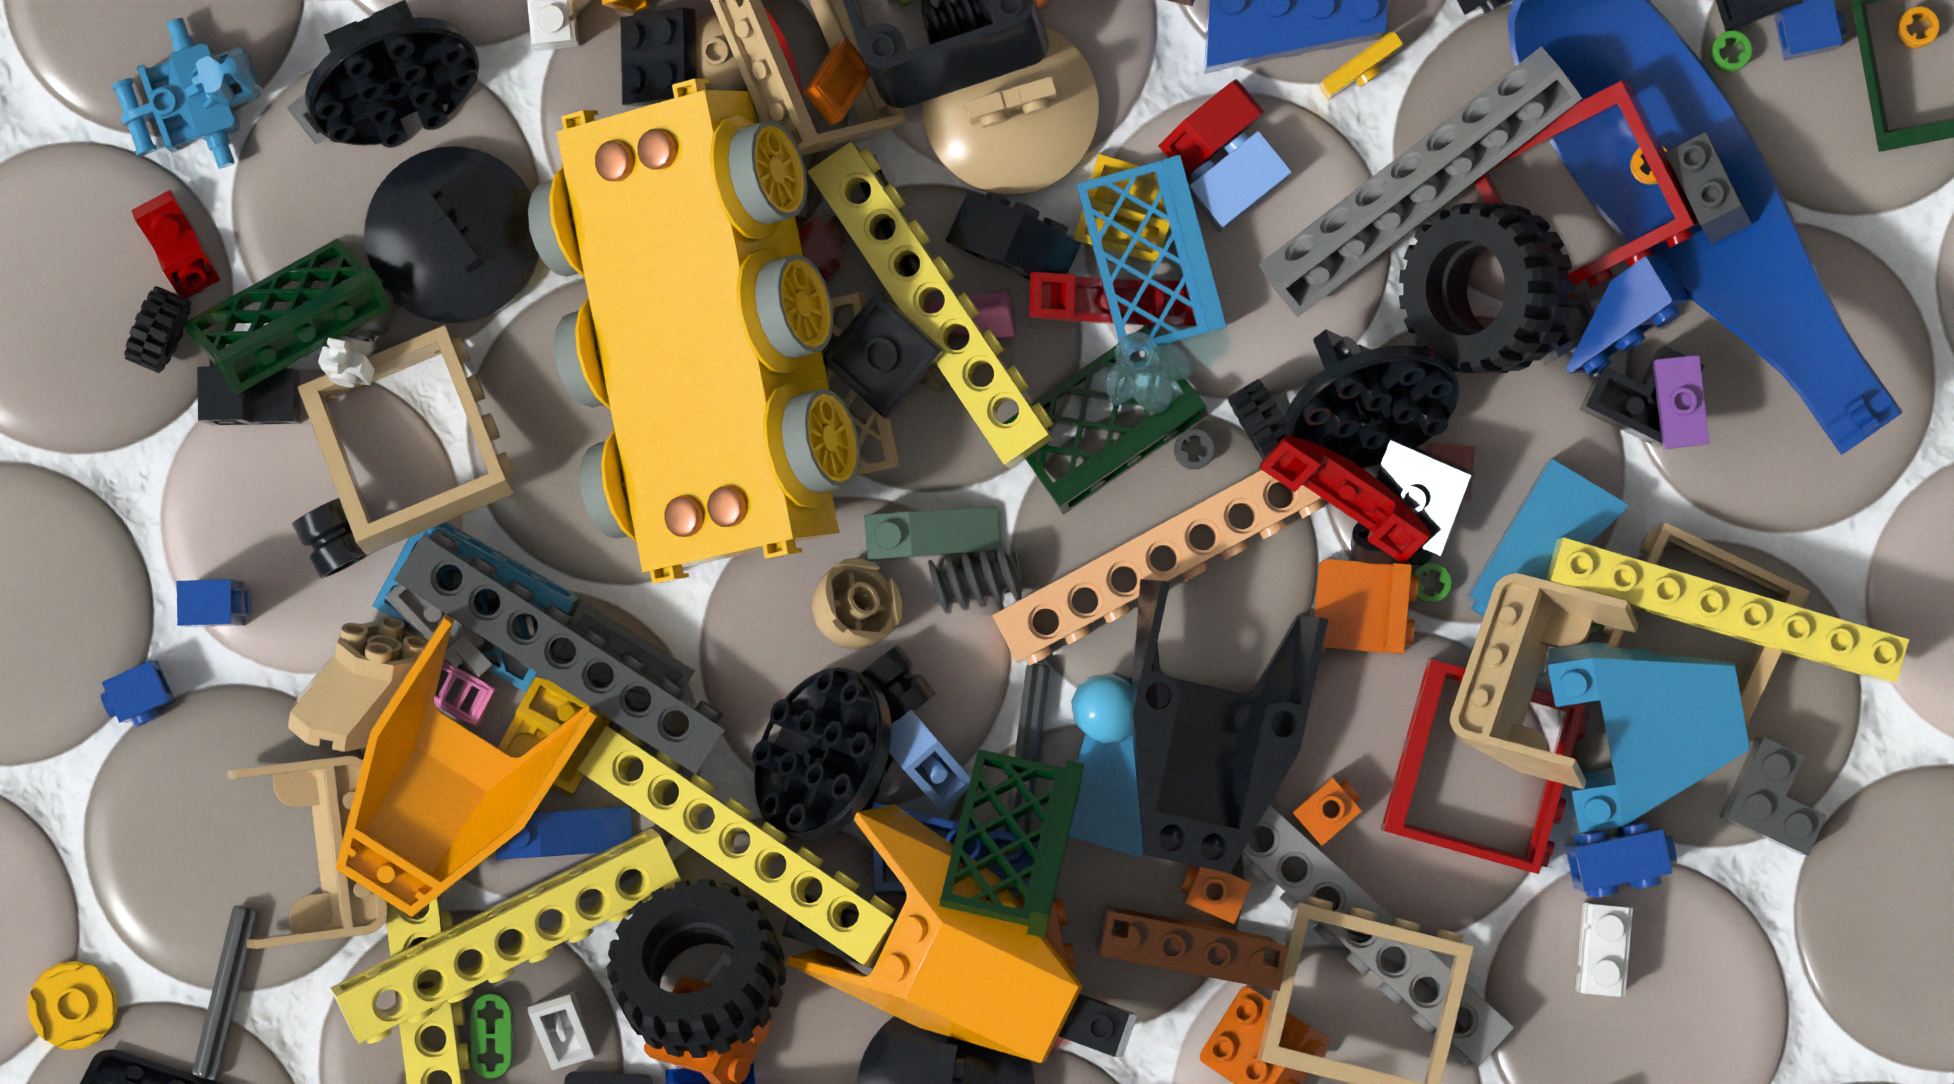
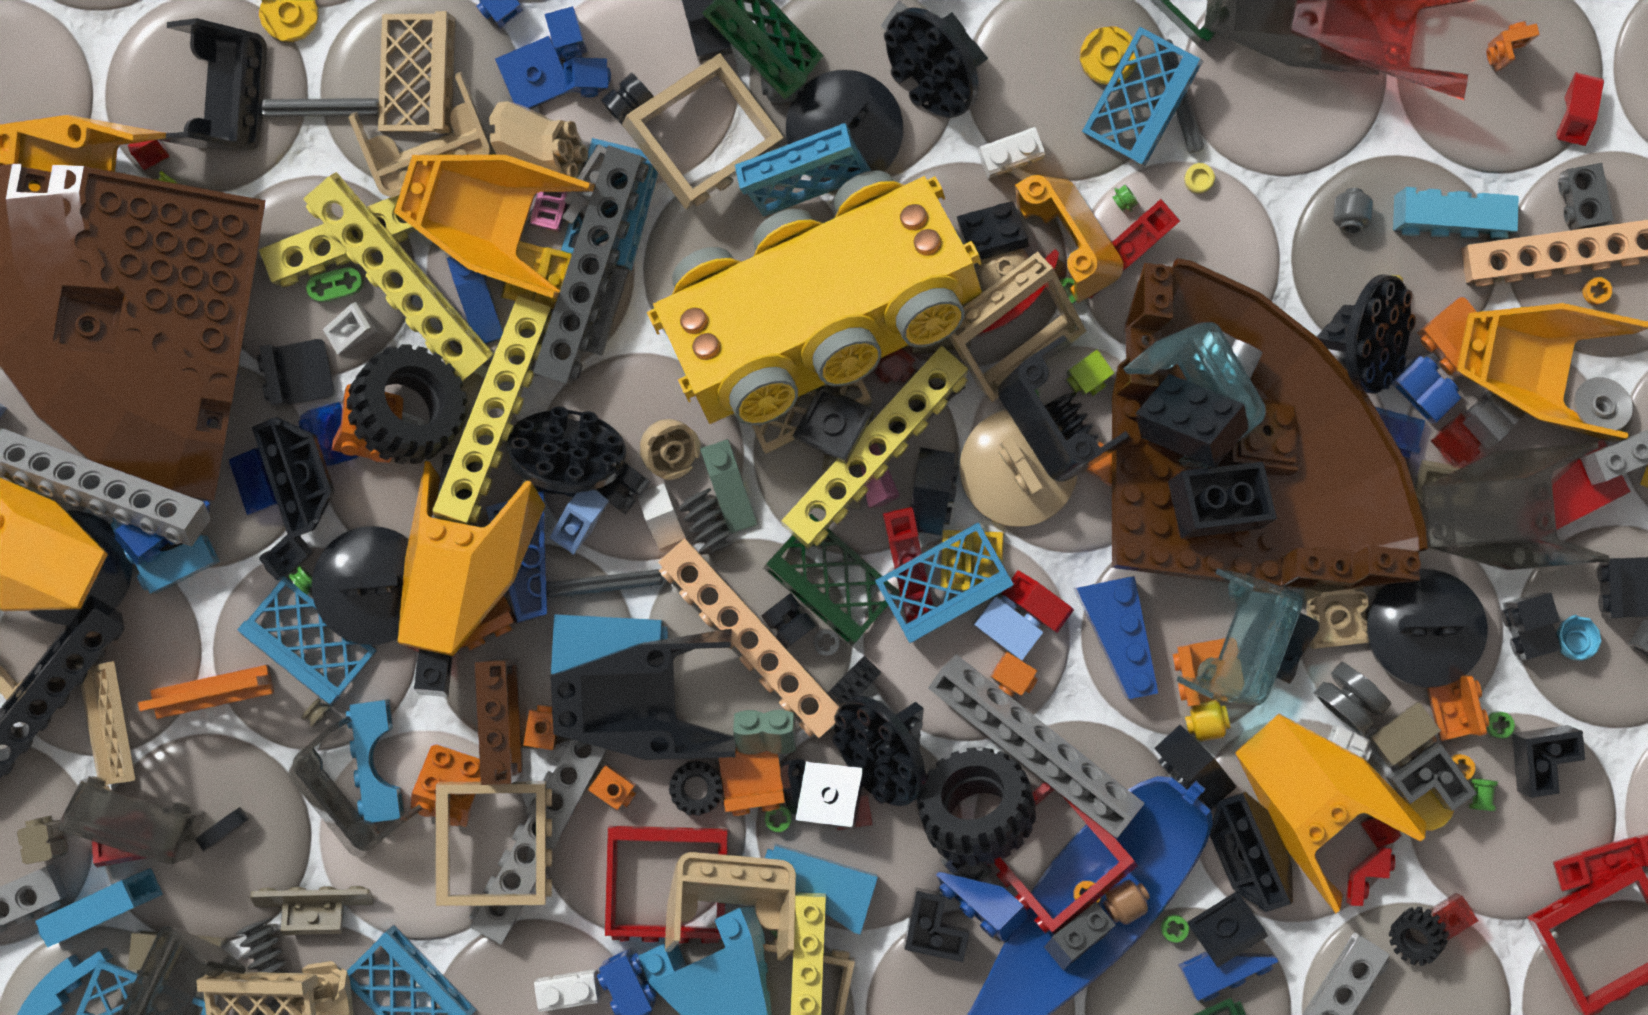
camera: 75 degrees right, 0 degrees up
(216, 801) = (440, 66): none -> tan fence
(256, 667) = (533, 73): none -> blue plate
(280, 590) = (586, 76): none -> blue brick
(343, 365) = (739, 78): white plate -> none
(486, 322) = (799, 160): none -> dark azure fence
(838, 81) = (1003, 349): orange tile -> none
(950, 642) = (661, 516): none -> white slope
(1051, 836) = (538, 613): dark green fence -> none
(1103, 708) = (641, 625): medium azure hair -> none
(1149, 378) = (863, 601): clear light blue plate -> none
(1164, 490) = (796, 628): none -> black wheel
(1301, 569) = (763, 732): none -> sand green brick
(1309, 189) = (1014, 675): none -> orange brick
(1350, 489) = (823, 750): red slope -> none
(1362, 67) = (1102, 689): yellow plate -> none
(1385, 690) = (689, 805): none -> black tyre
(1676, 108) = (1126, 902): none -> medium nougat head
(1681, 402) = (934, 952): medium lavender plate -> none

